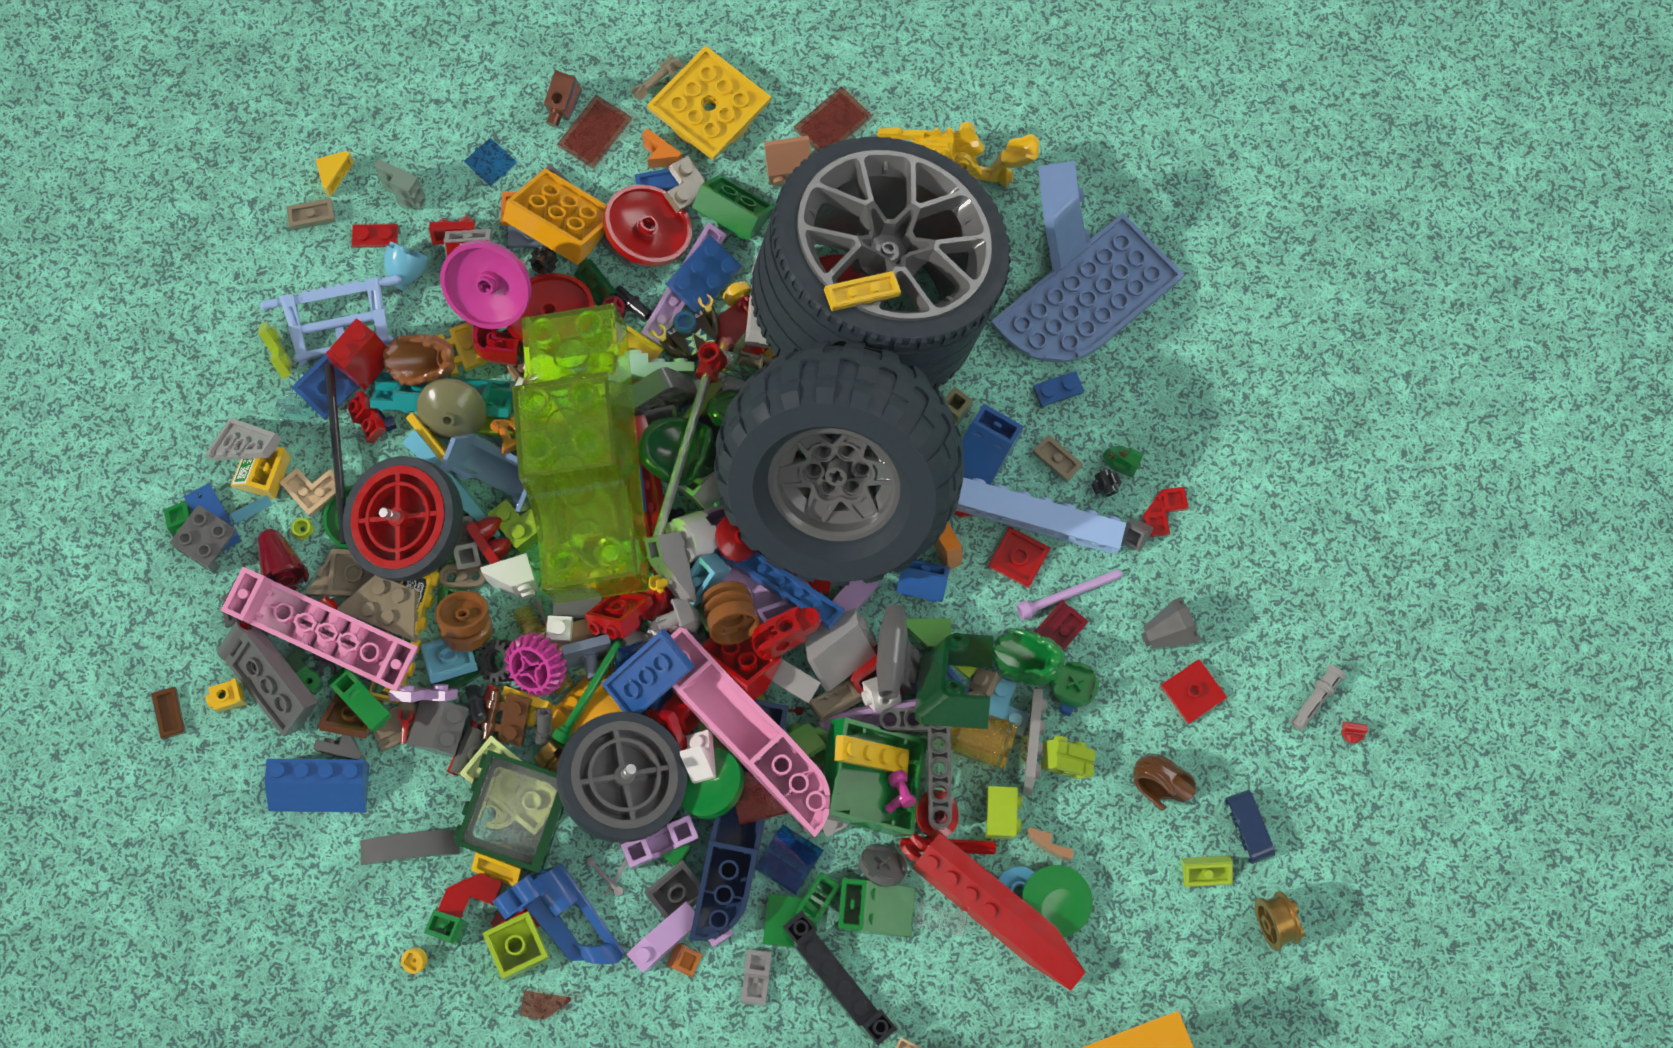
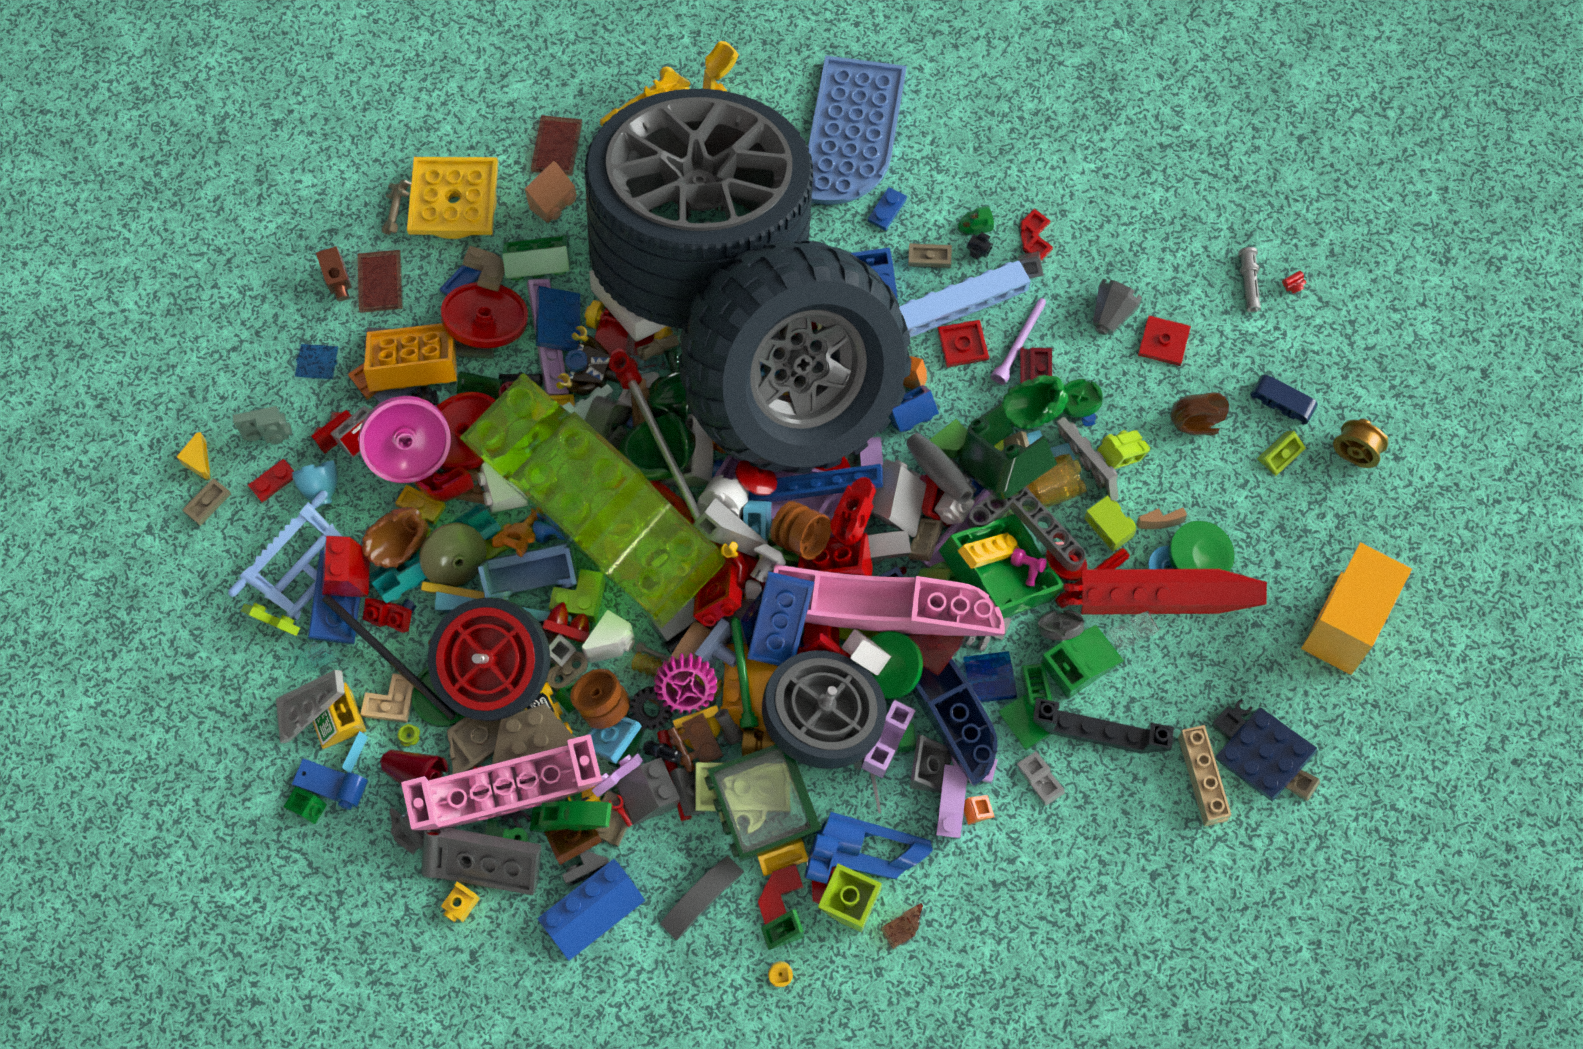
camera: 35 degrees left, 5 degrees down
(168, 713) = (423, 953): reddish brown tile -> none
(203, 538) = (337, 801): dark grey bracket -> none
(559, 628) = (680, 643): white plate -> none
(618, 891) = (886, 800): light grey hinge -> none
(662, 153) = (449, 256): orange slope -> none
(862, 291) = (715, 213): yellow tile -> none
(1062, 213) = (801, 92): medium blue windscreen -> none

